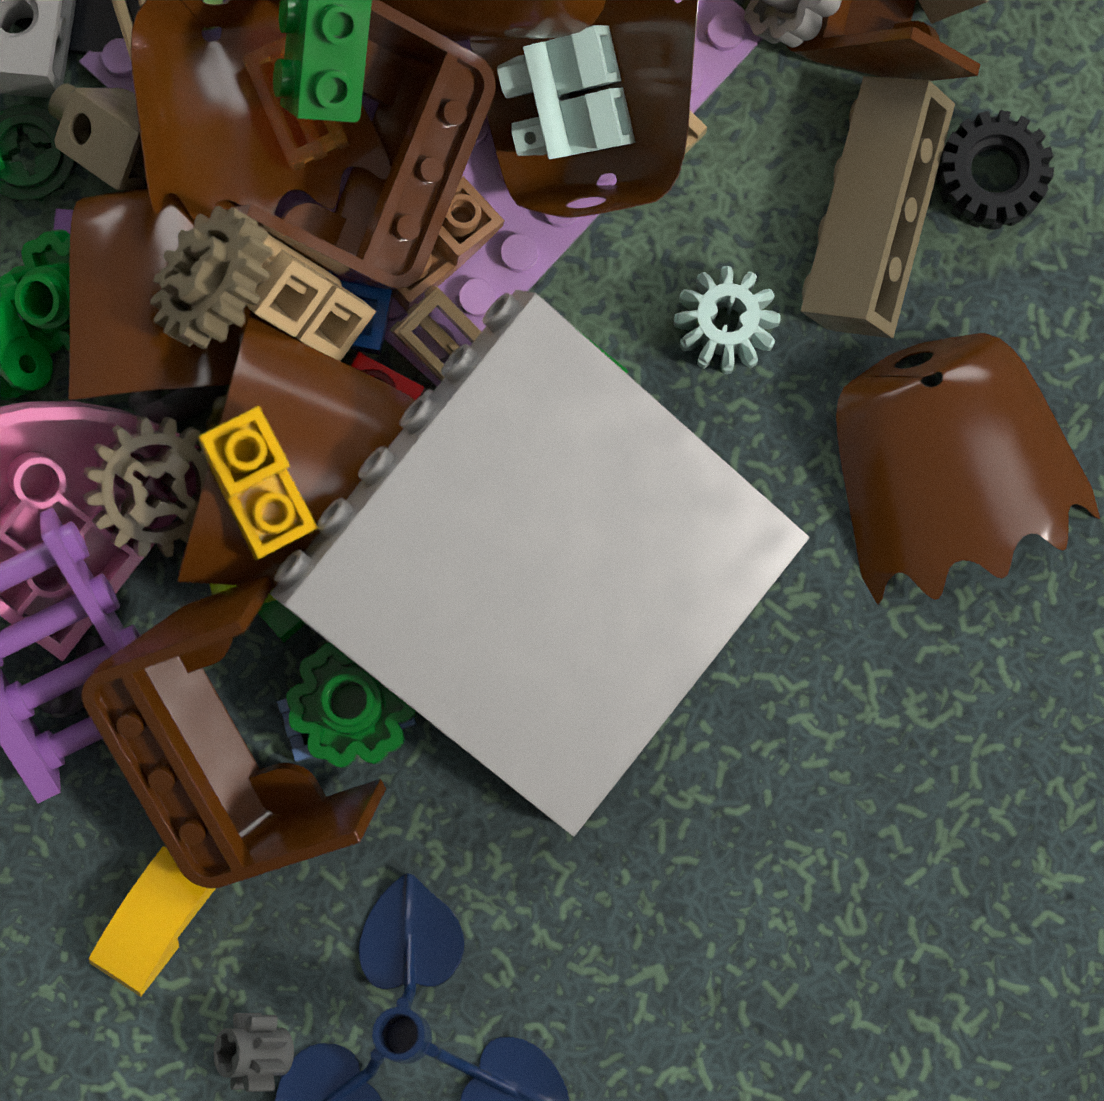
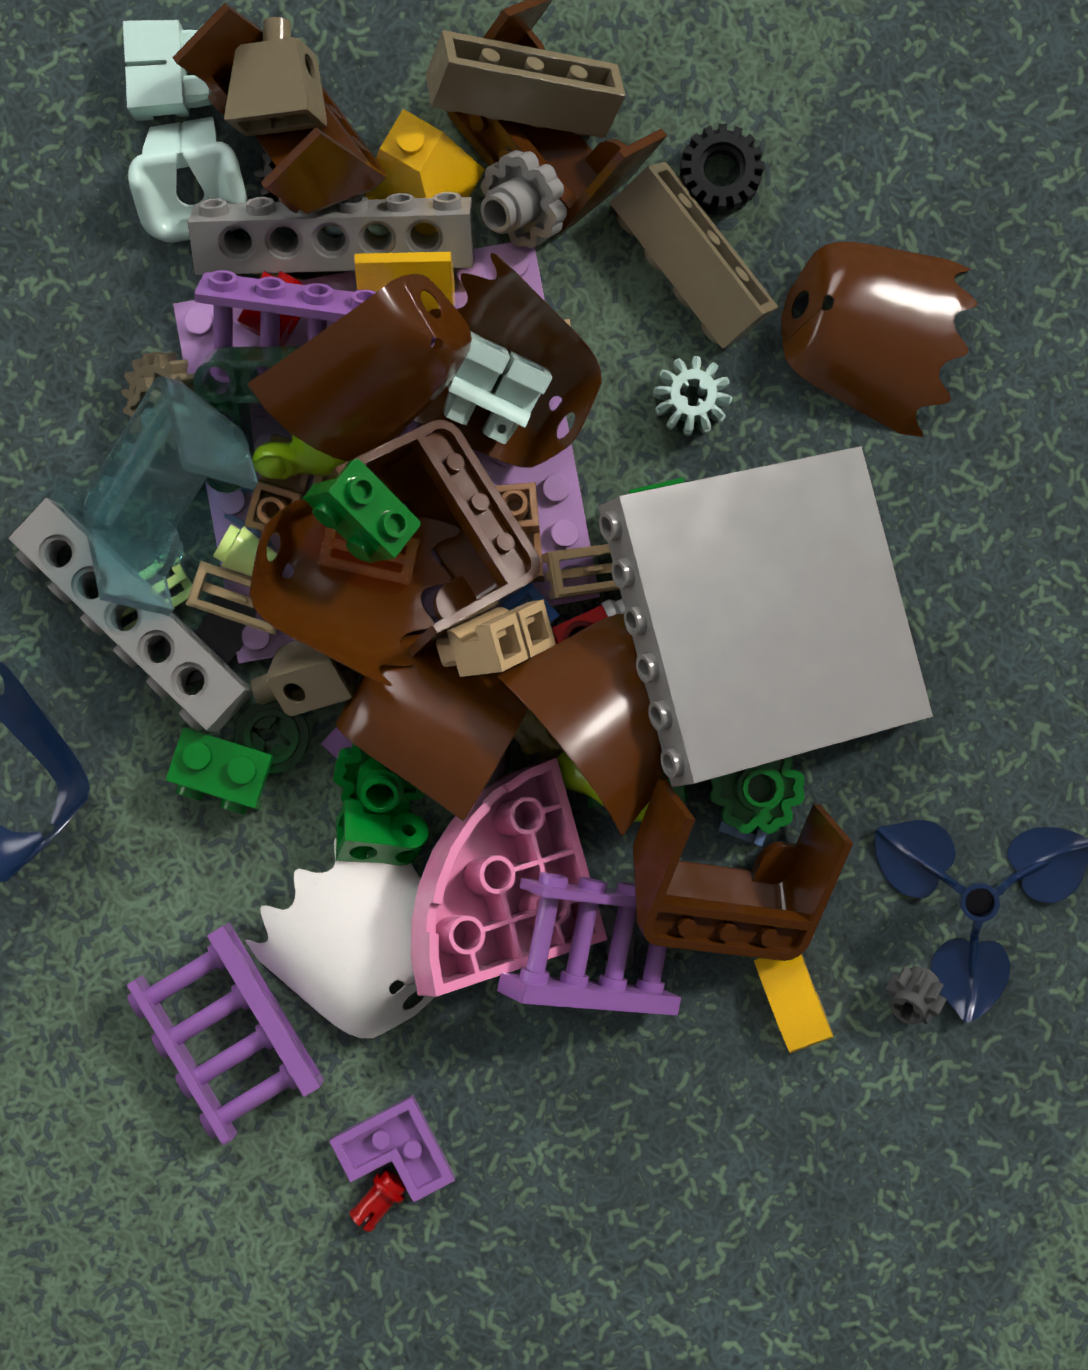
camera: 60 degrees left, 5 degrees up
(135, 511) = (557, 825): dark tan gear -> none
(211, 277) = (459, 681): dark tan gear -> none
(256, 482) = (609, 746): yellow slope -> none

